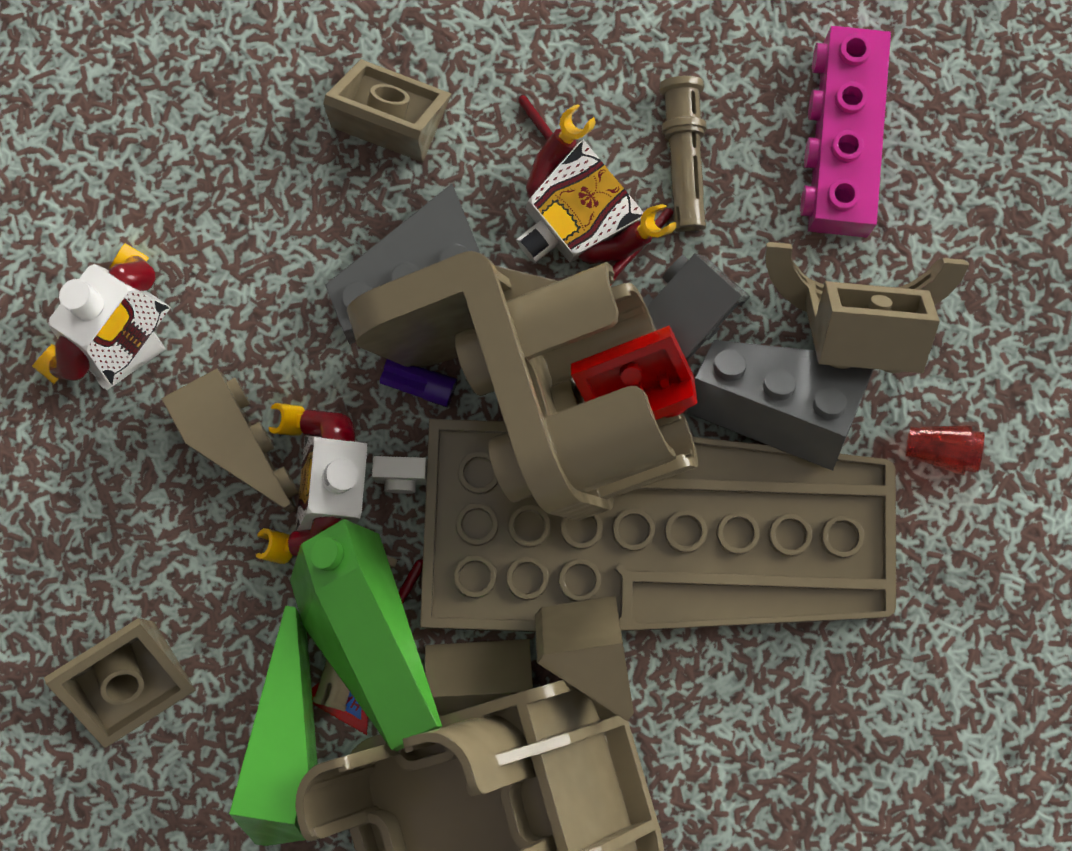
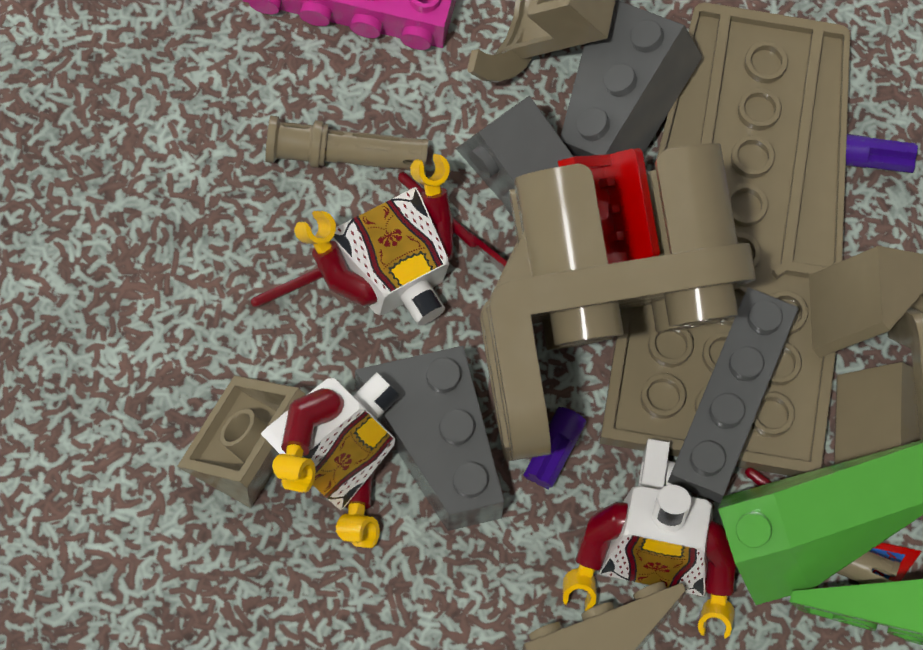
camera: 85 degrees left, 10 degrees down
(375, 171) = (336, 447): none -> torso
(481, 533) = (733, 395): none -> dark grey plate
(766, 659) = (880, 153): none -> dark purple piece

